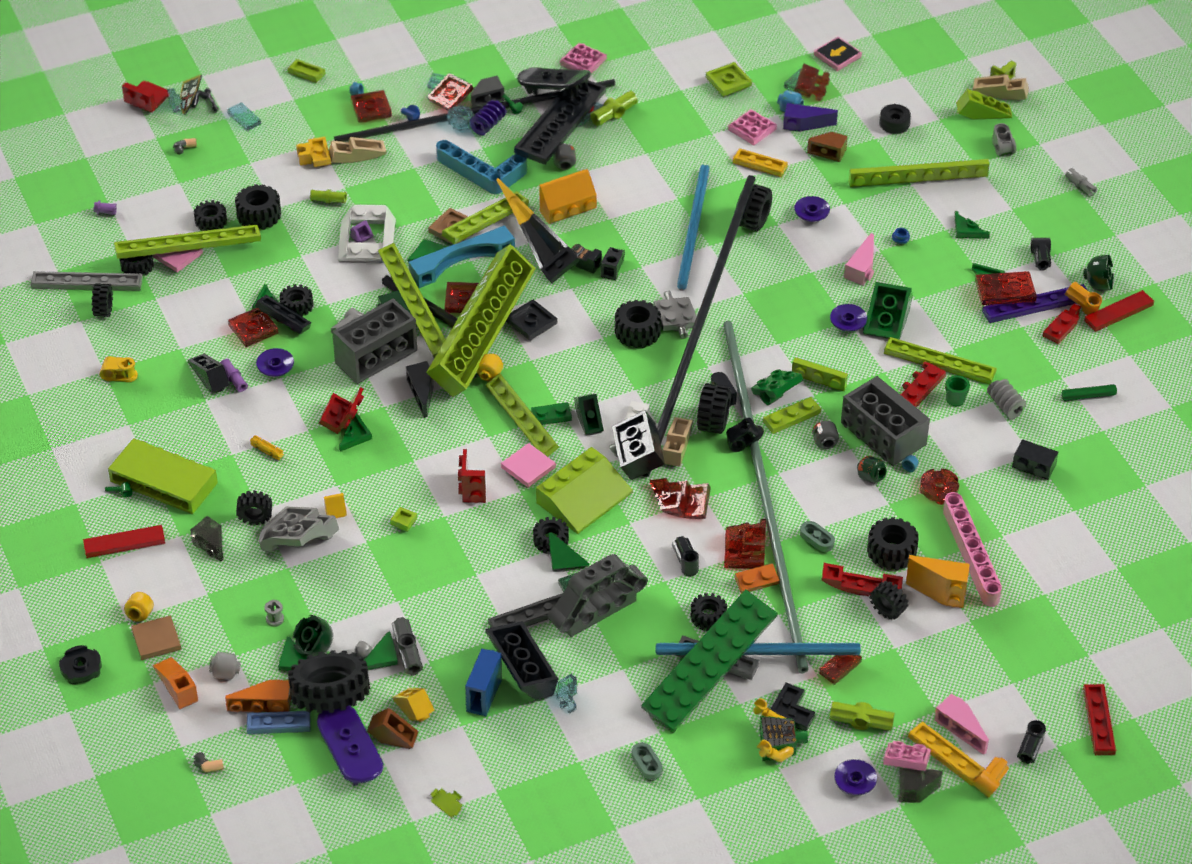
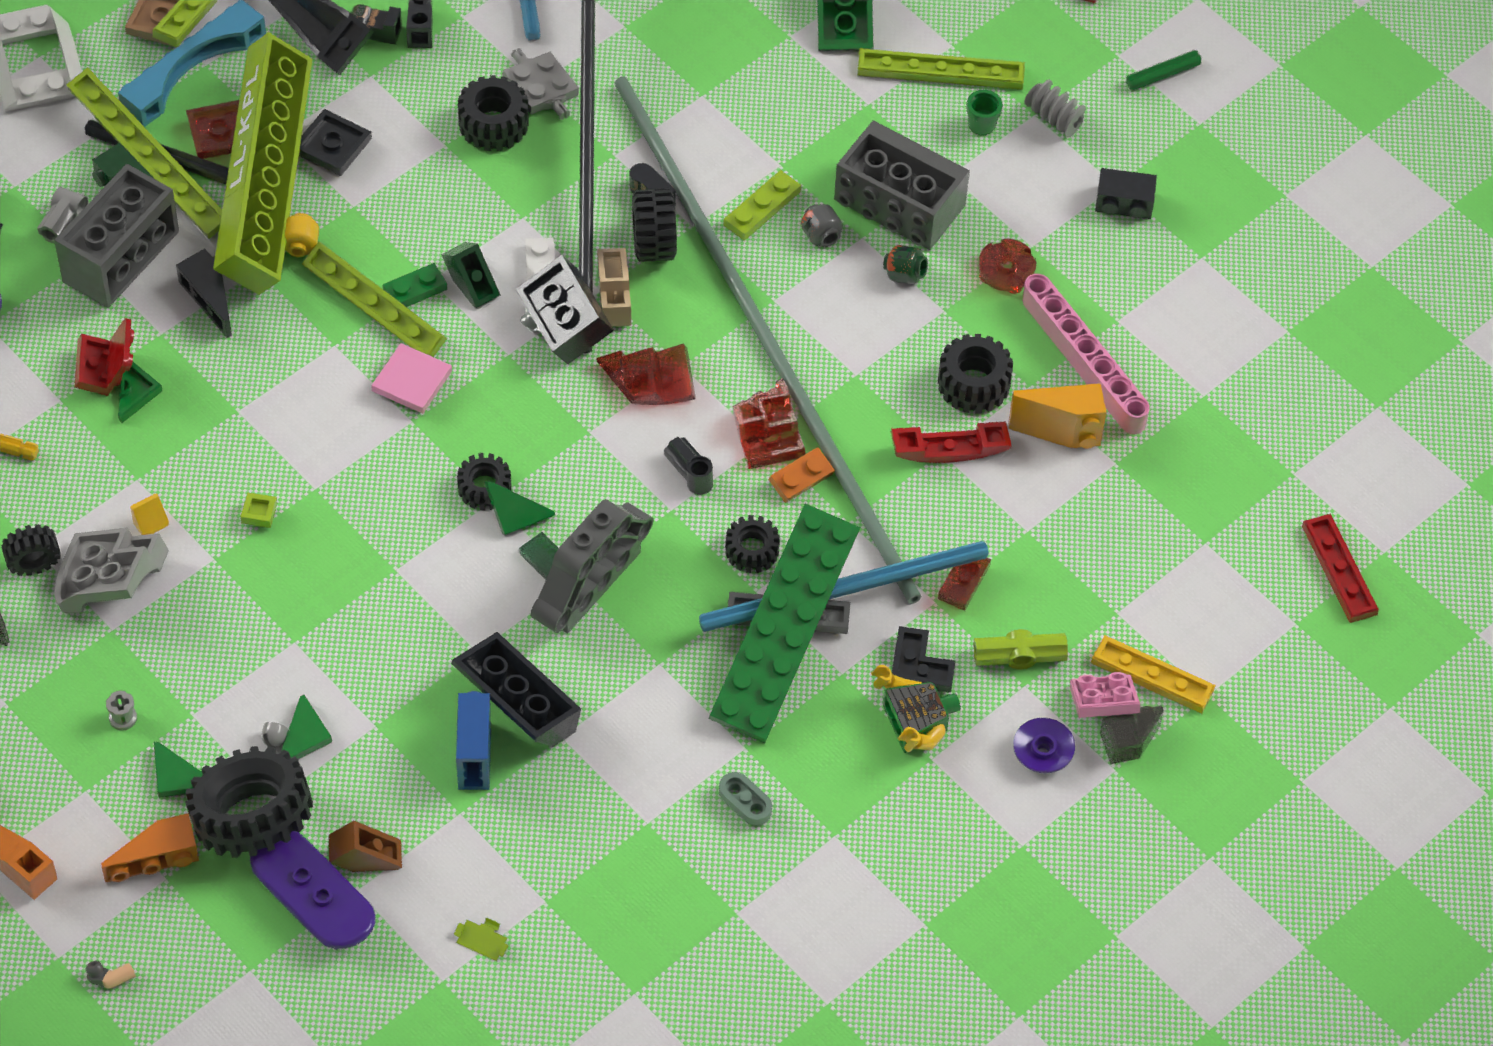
camera: 20 degrees left, 10 degrees up
(224, 665) = (78, 814): light grey head -> none
(278, 722) = (189, 881): medium blue tile -> none
(312, 636) = (195, 734): dark green cylinder -> none
(361, 232) = (24, 57): medium lavender slope -> none
(407, 646) = (346, 724): dark grey piece -> none
(414, 703) = (381, 799): yellow slope -> none
(425, 248) = (133, 63): green tile -> none
(473, 482) = (341, 432): red bracket -> none
(529, 614) = (494, 614): dark grey tile -> none
(565, 690) = (593, 723): clear light blue plate -> none
(583, 490) = (506, 399): lime slope -> none
(742, 435) = (704, 255): black piece -> none
(773, 387) = (726, 164): green plate -> none
(819, 537) = (865, 387): sand green plate -> none
(820, 374) = (781, 131): lime plate -> none
(848, 317) = (791, 31): dark purple dish -> none
(889, 600) = (1000, 463): black tyre -> none
(910, 463) = (955, 241): dark azure hinge -> none
(923, 383) = (930, 111): red hinge -> none
(959, 719) = (1158, 621): bright pink slope -> none
(990, 778) = (1225, 699): light orange piece -> none
(1032, 742) = (1264, 628): black piece -> none

